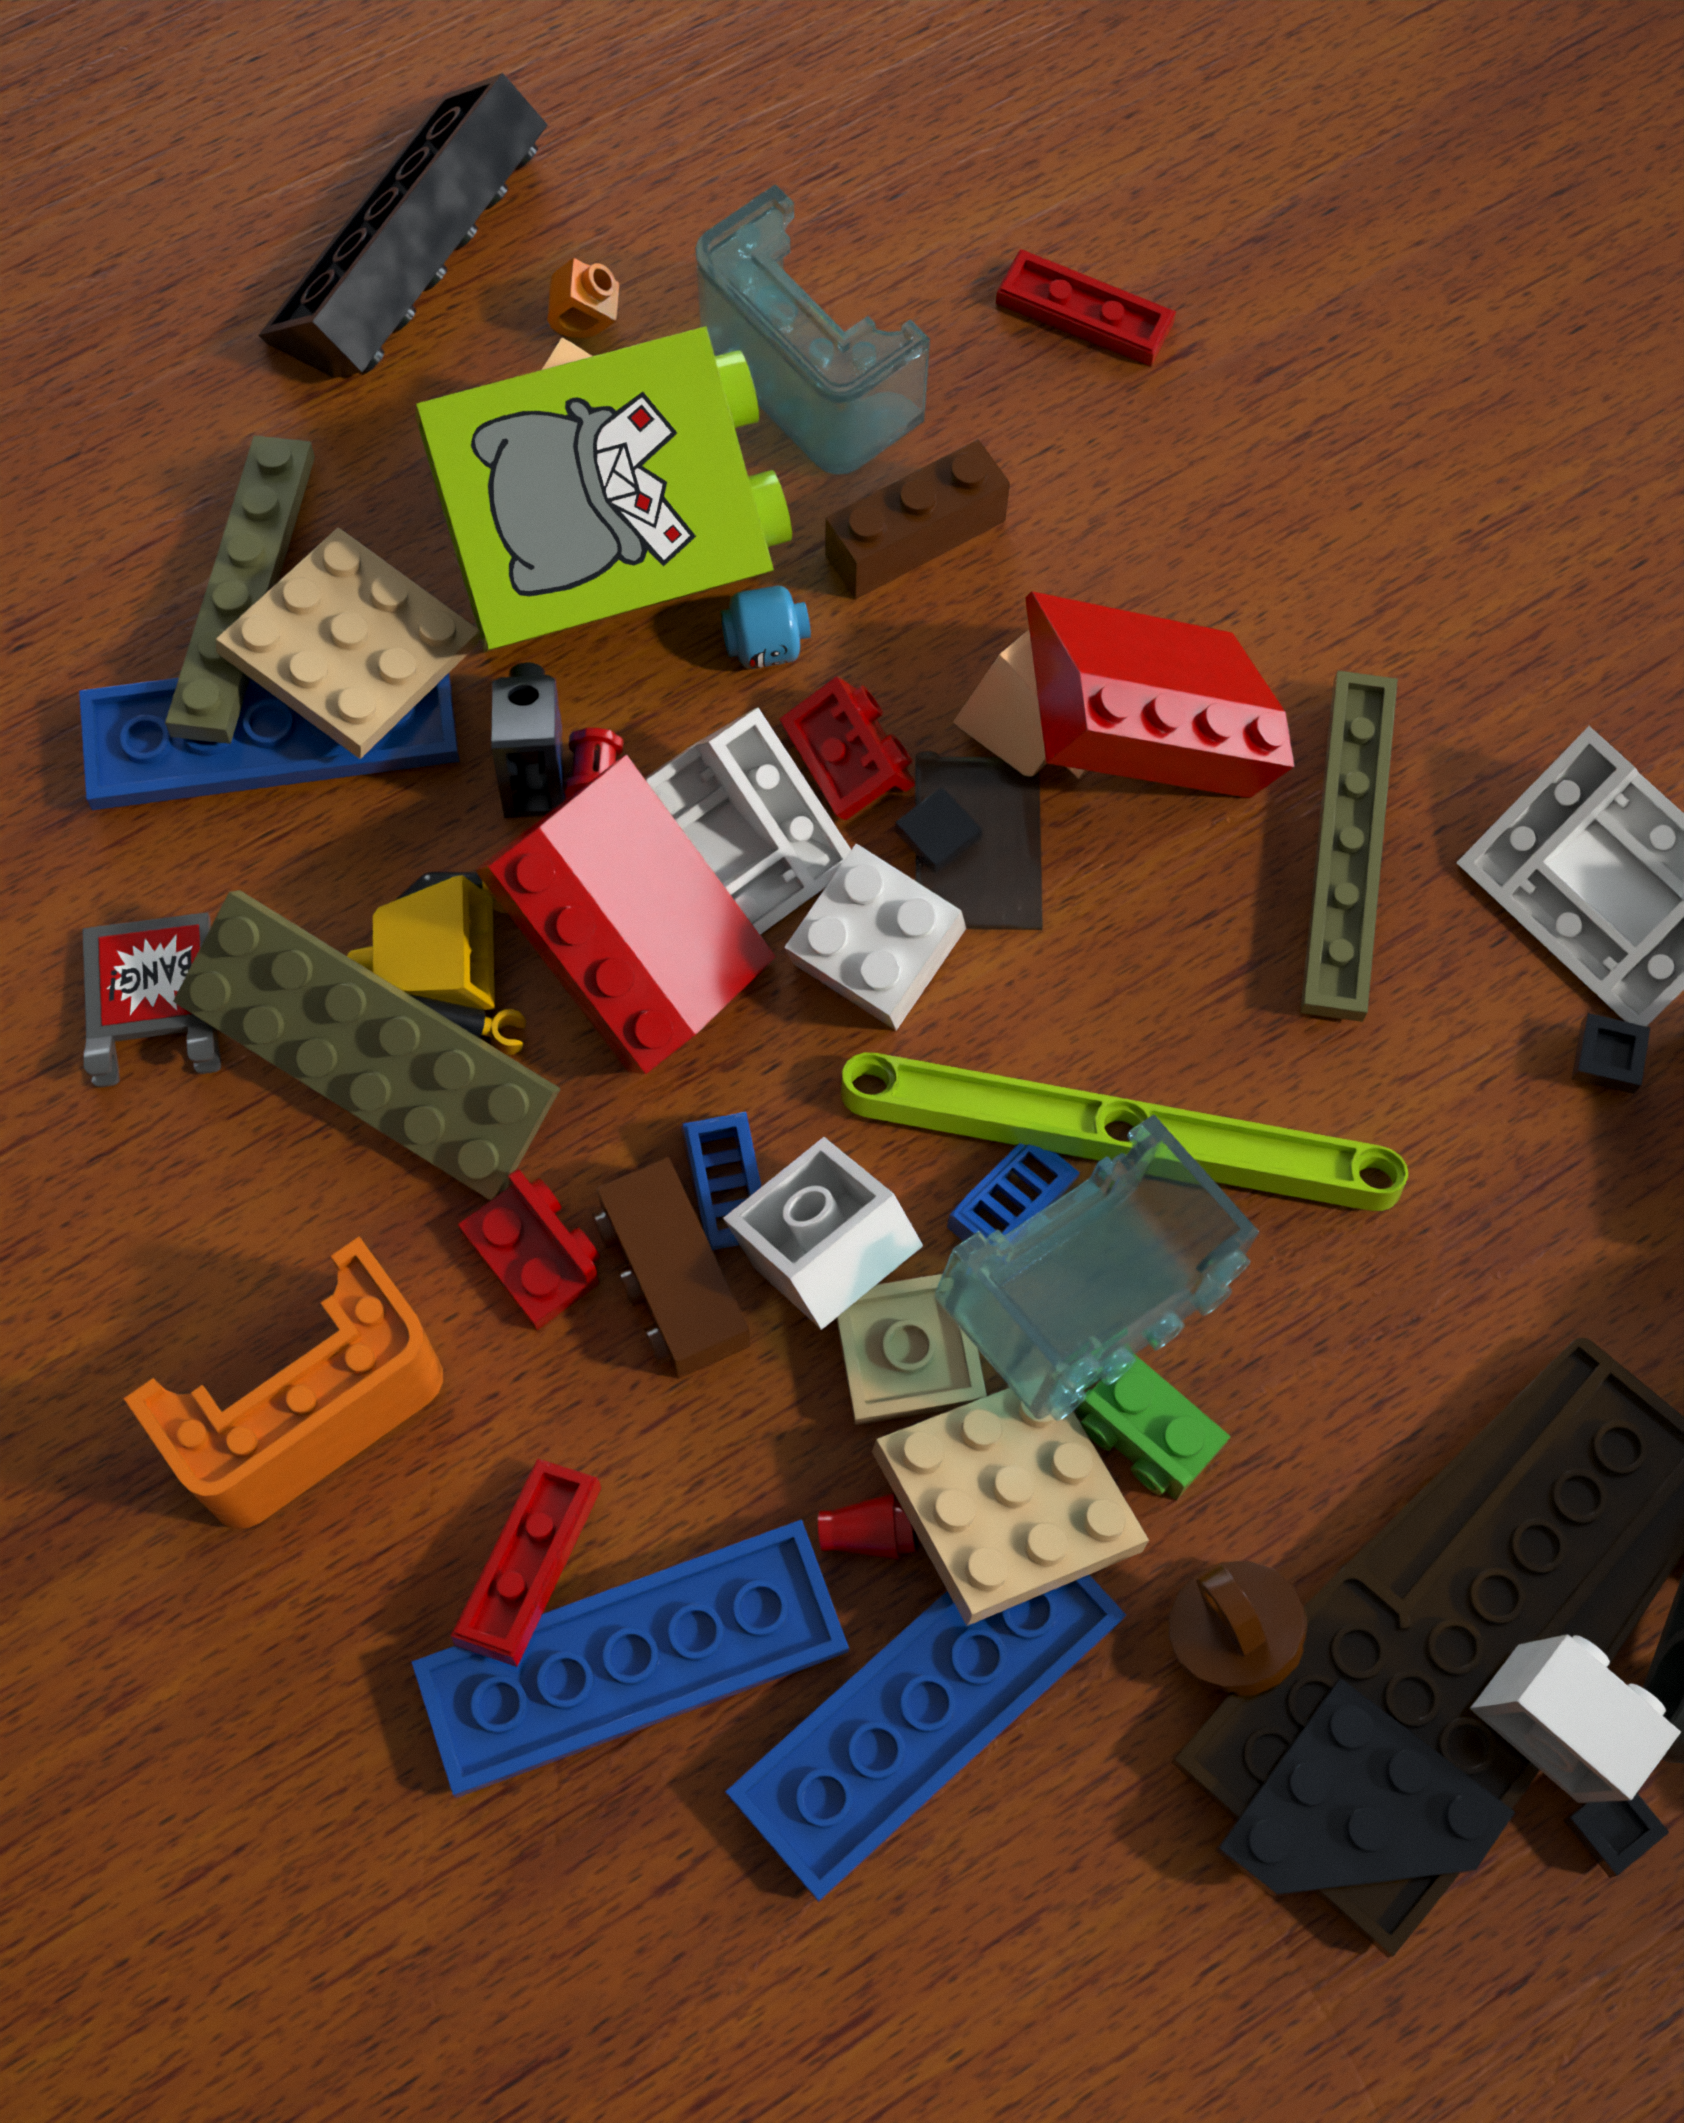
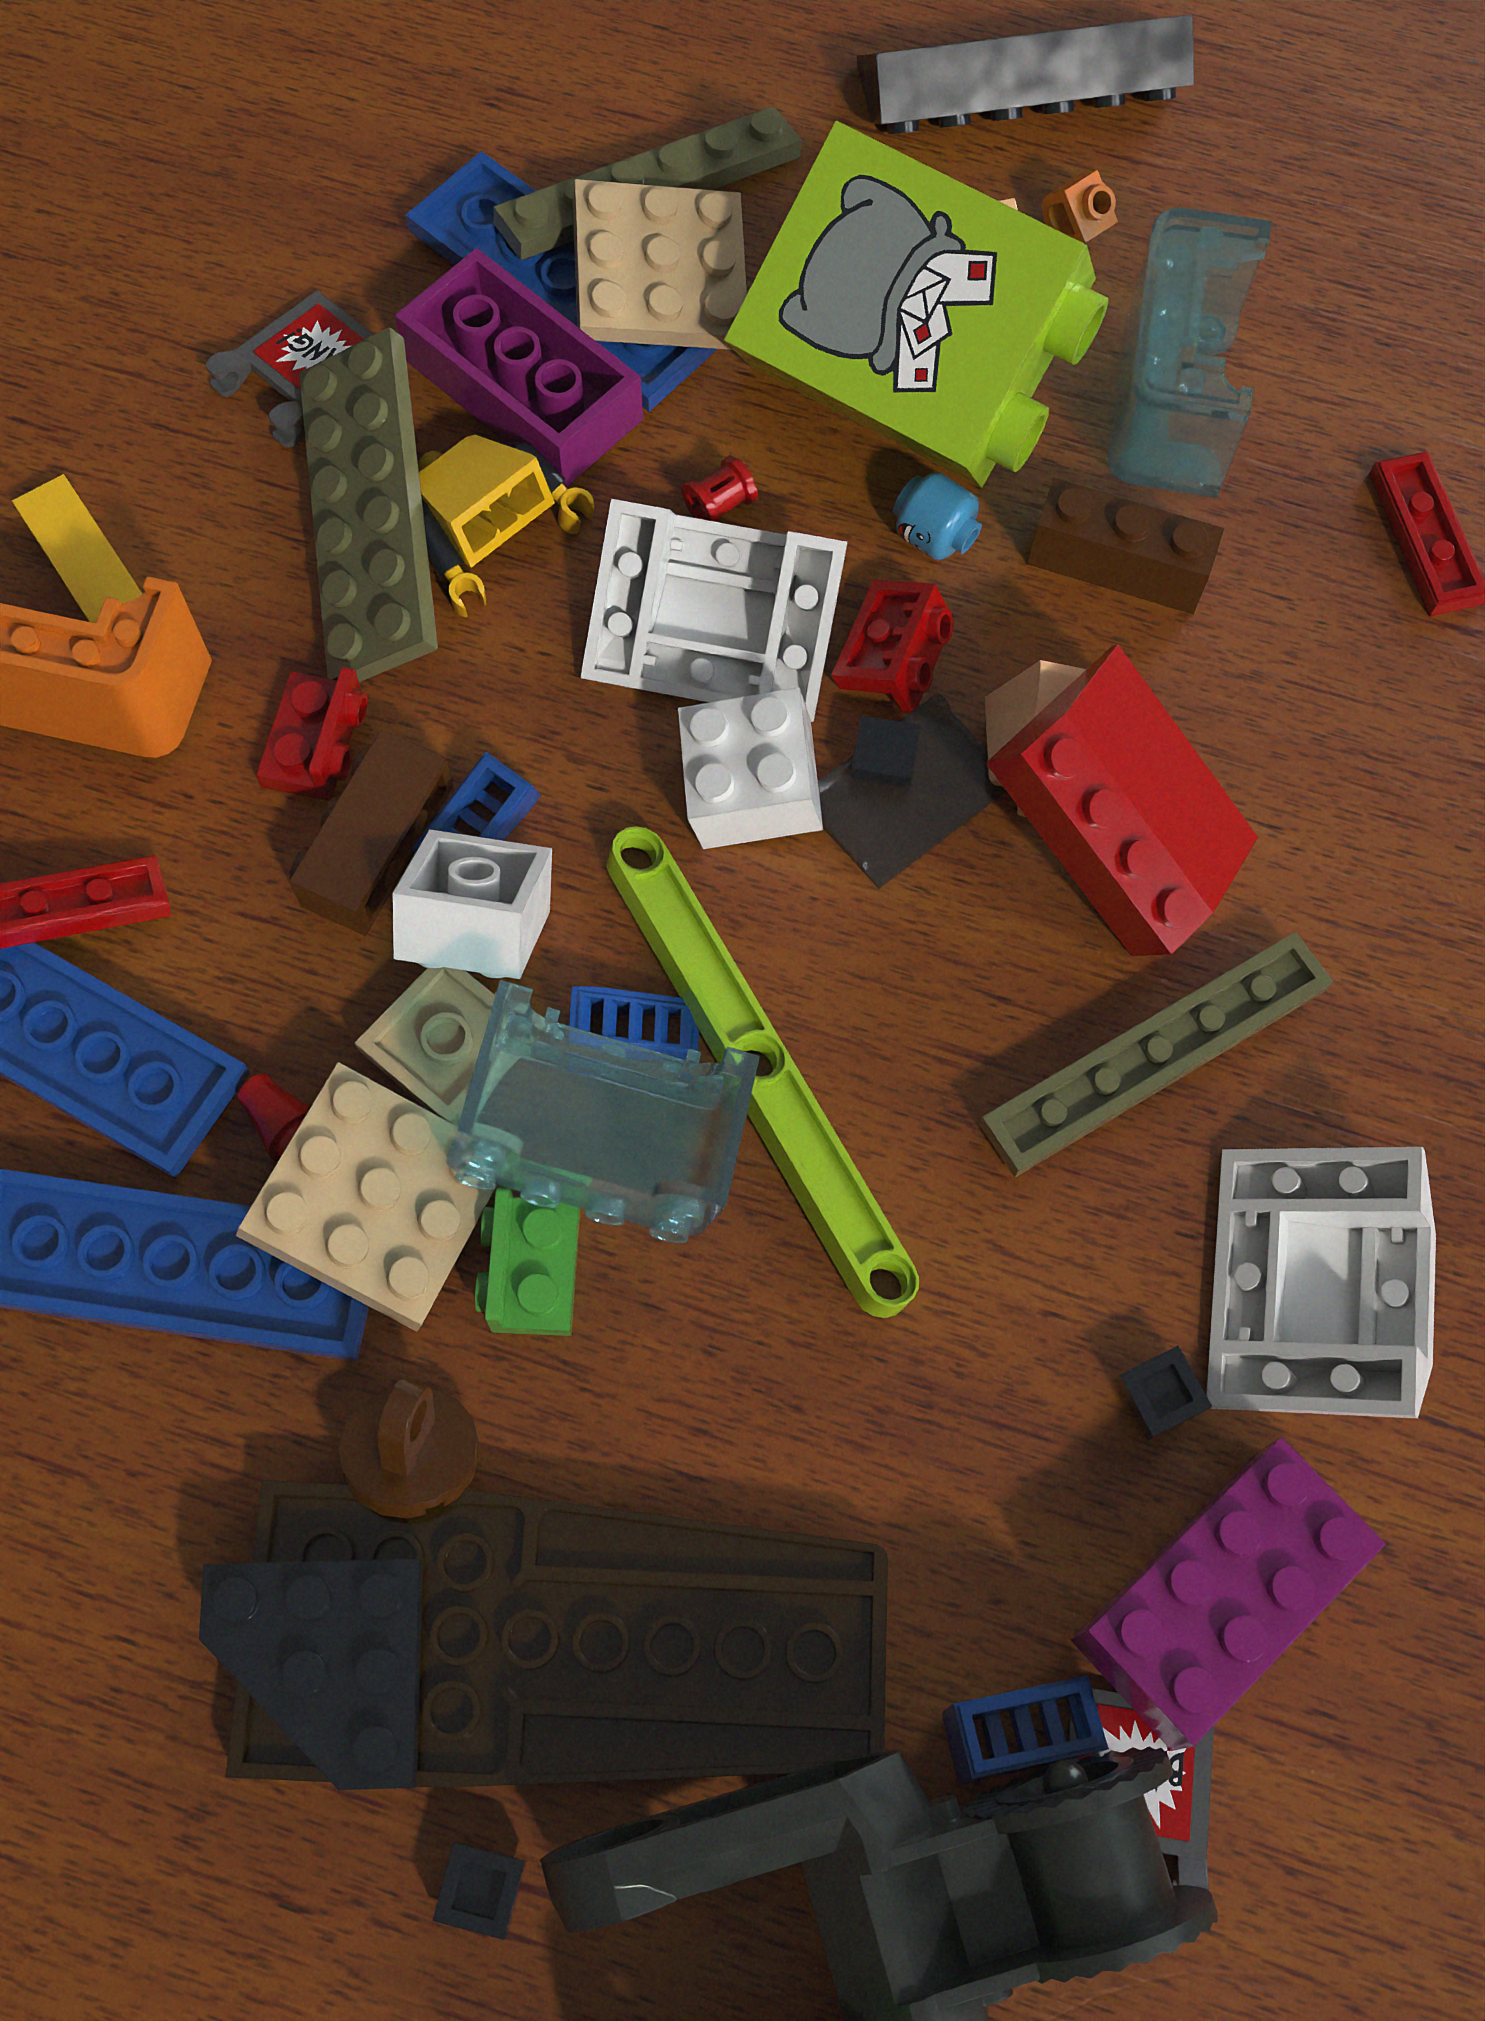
camera: 50 degrees right, 0 degrees up
(198, 1318) = (75, 546): none -> yellow tile
(336, 822) = (520, 365): none -> magenta brick
(527, 721) = (692, 429): black torso -> none
(627, 916) = (606, 584): slope -> none
(1577, 1718) = (513, 1777): white brick -> none

